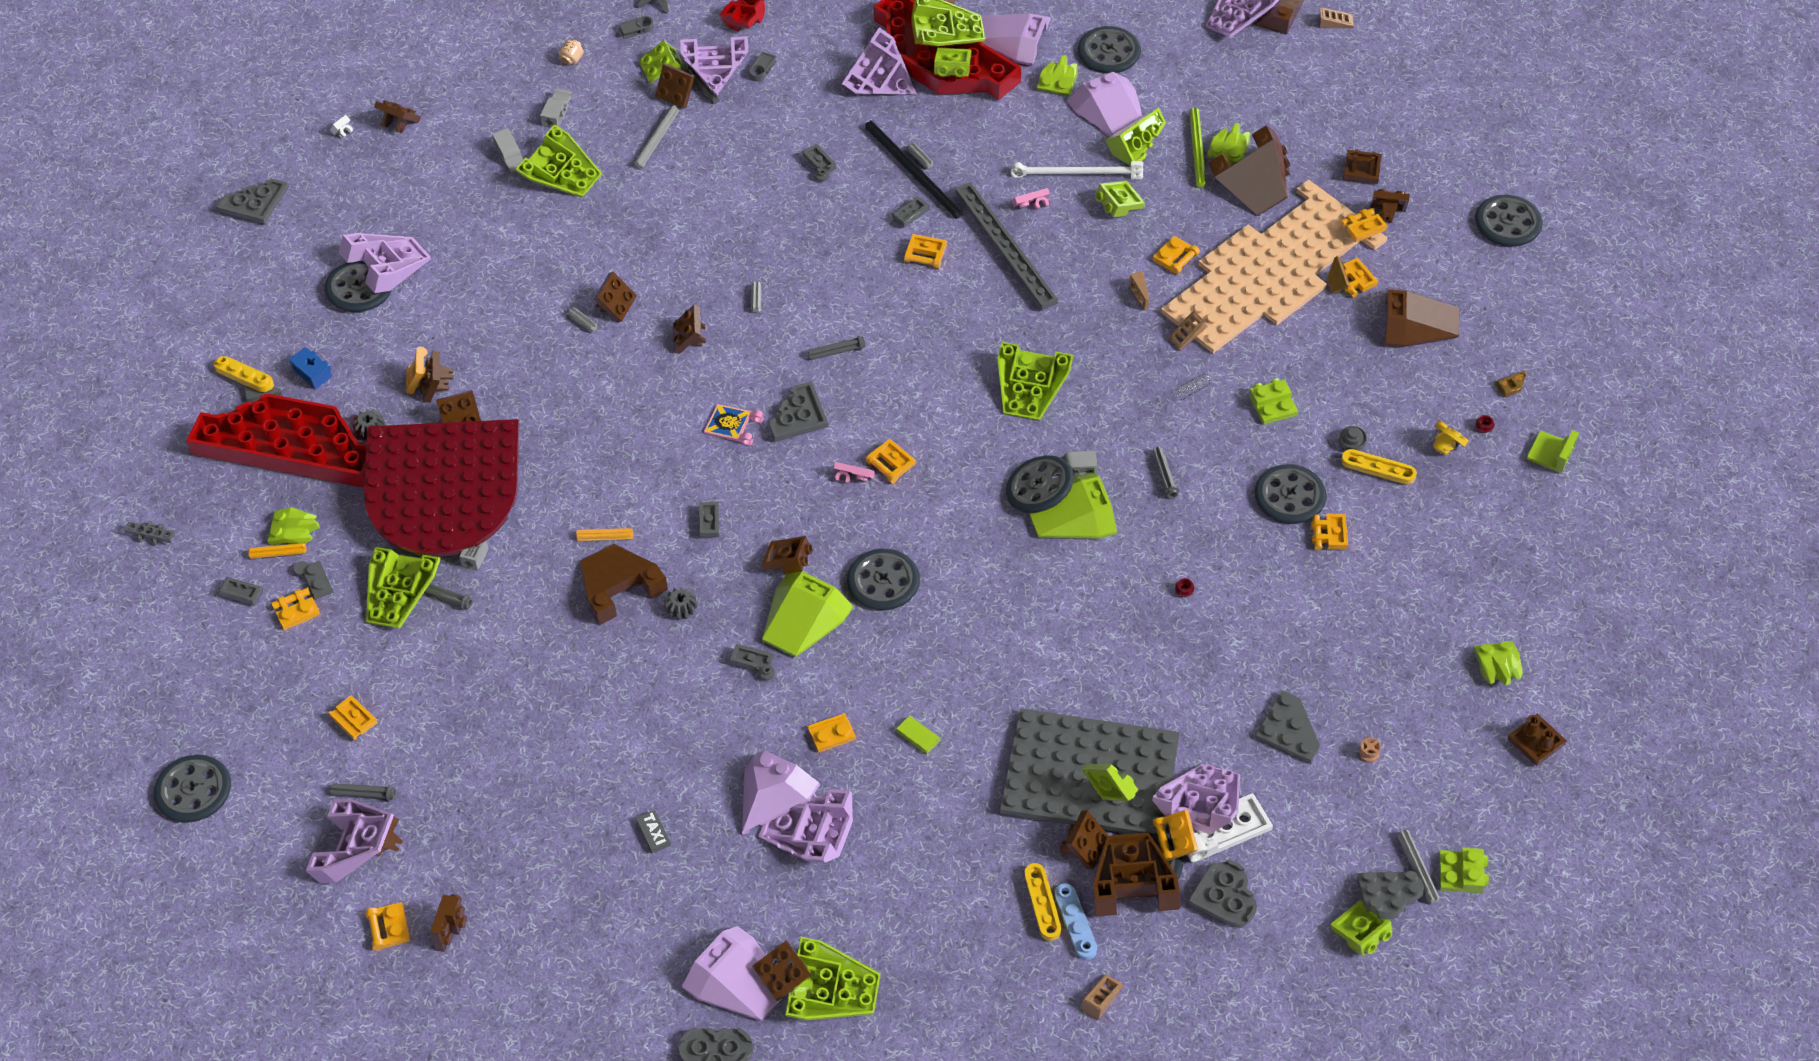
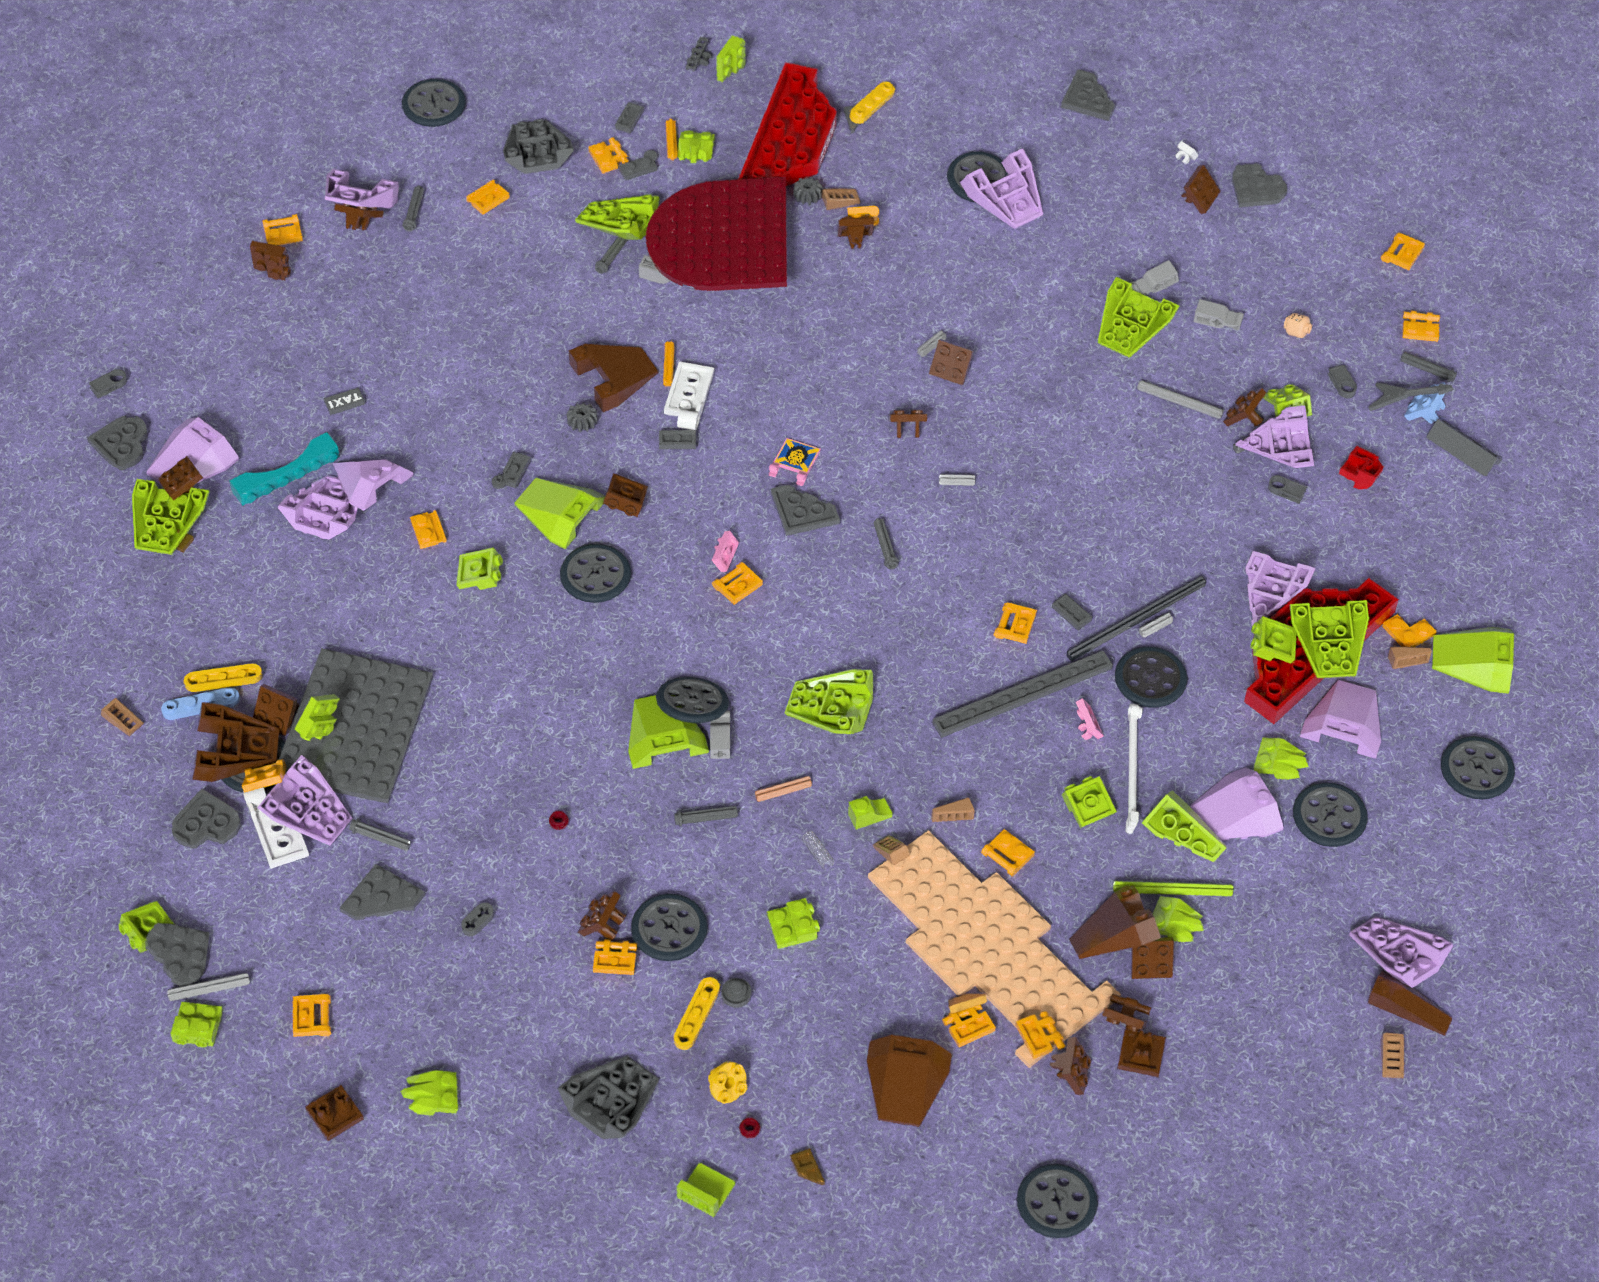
camera: 90 degrees right, 0 degrees up
(167, 495) = (731, 58): none -> lime plate
(277, 673) = (536, 146): none -> dark grey wedge
(310, 367) = (876, 147): blue brick -> none
(384, 407) = (831, 199): none -> medium nougat slope
(389, 80) = (1255, 187): none -> dark grey plate
(458, 408) = (812, 250): reddish brown plate -> none
(664, 512) = (689, 407): none -> white hinge
(732, 845) = (251, 486): none -> teal arch
(819, 161) = (1144, 535): dark grey hinge -> none
(887, 677) = (479, 569): none -> lime plate
(918, 734) = (416, 594): lime tile -> none
(982, 161) = (1137, 694): none -> wedge
(1127, 416) = (783, 788): none -> axle
(1148, 351) = (867, 811): none -> lime arch
(1214, 755) = (397, 841): none -> axle
(1292, 540) = (599, 912): none -> reddish brown plate
(1305, 644) = (475, 918): none -> dark grey beam
(1334, 172) = (1127, 1013): none -> reddish brown plate
(1369, 744) = (344, 954): nougat wheel -> none
(1437, 776) = (305, 1015): none -> light orange plate
(1480, 520) = (609, 1097): none -> dark grey wedge

